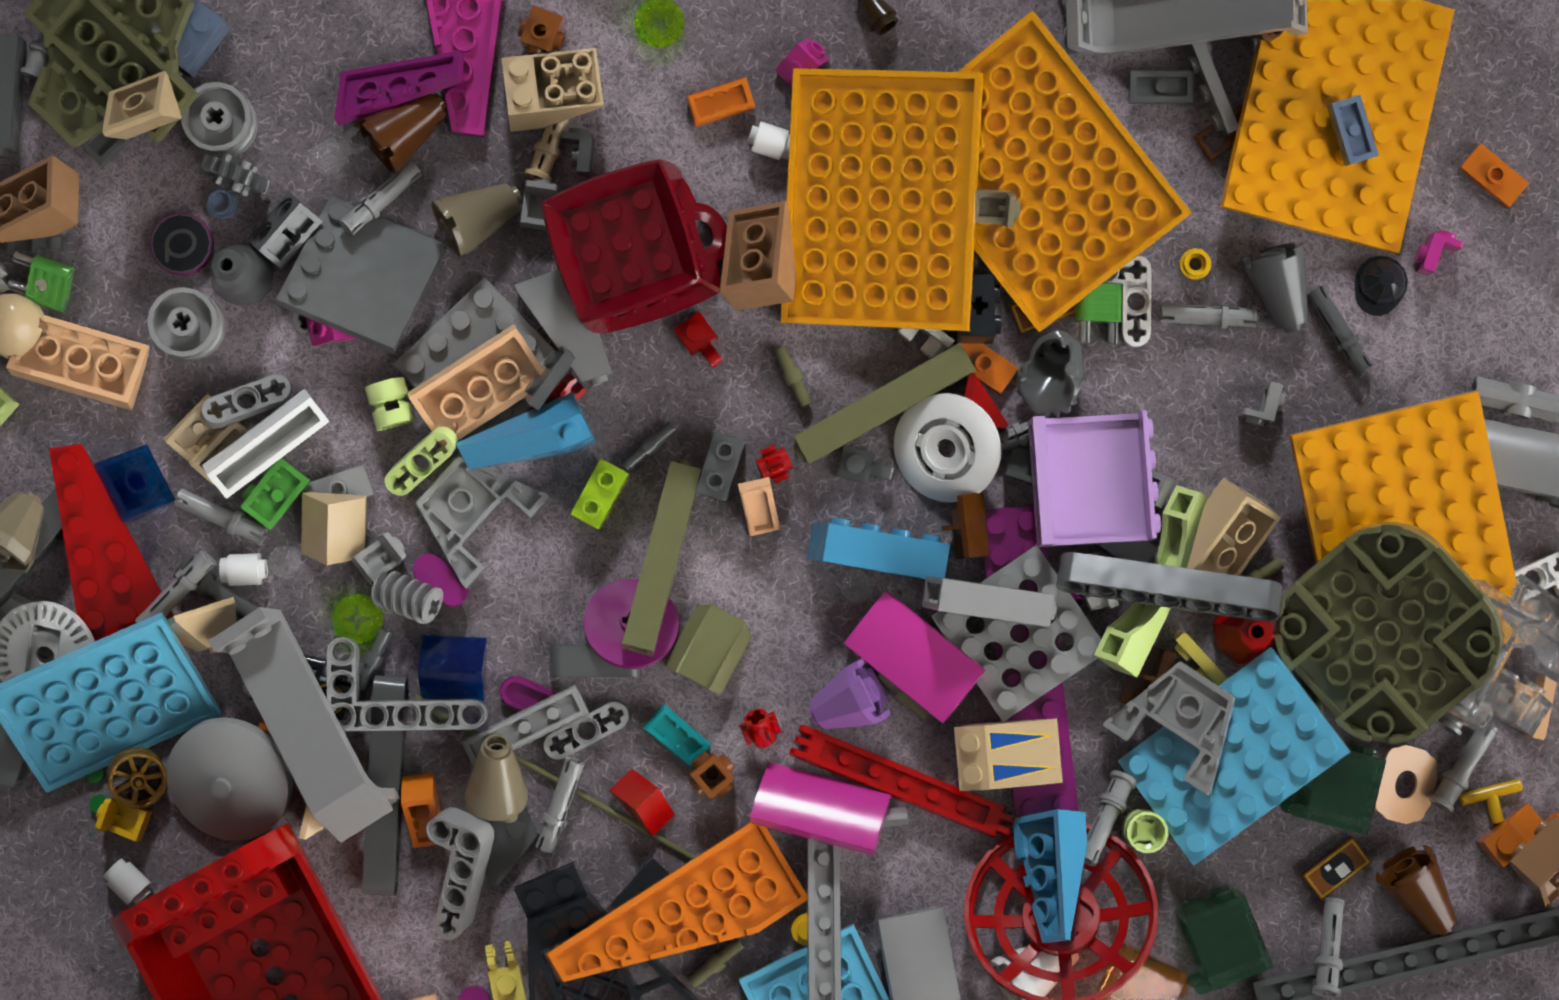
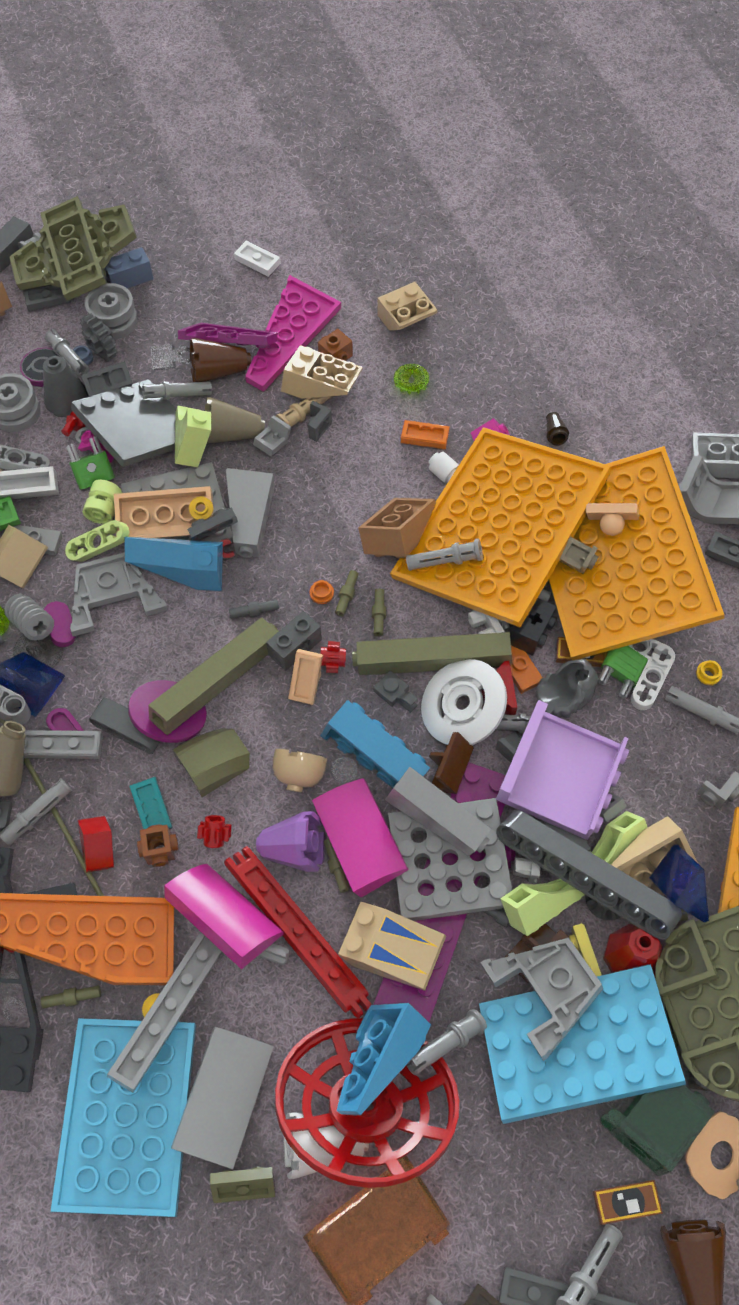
camera: 30 degrees right, 25 degrees down
(140, 107) = (65, 273): tan slope -> none
(194, 210) = (62, 348): none -> light grey pin
(281, 313) = (73, 423): none -> red plate
(347, 365) = (91, 467): none -> bright green piece
(379, 557) = (31, 587): light grey bracket -> none
(450, 268) = (191, 435): none -> yellowish green arch
(518, 355) = (208, 511): none -> yellow plate
(569, 748) = (82, 763): light grey beam -> none
(600, 494) = (201, 619): lime brick -> none
(633, 246) = (314, 465): dark red piece -> none
(697, 337) = (329, 559): red plate -> none
(714, 385) = (321, 592): none -> orange plate
(743, 371) = (346, 593): none -> olive bar
(811, 617) = (298, 769): none -> tan cylinder
(851, 273) = (457, 554): none -> light grey pin
(1012, 139) = (612, 515): none -> light nougat tile
(1144, 830) = (474, 1071): yellowish green wheel -> none
(1222, 939) = (497, 1205): clear green container -> none
(1267, 552) = (683, 882): none -> clear blue slope

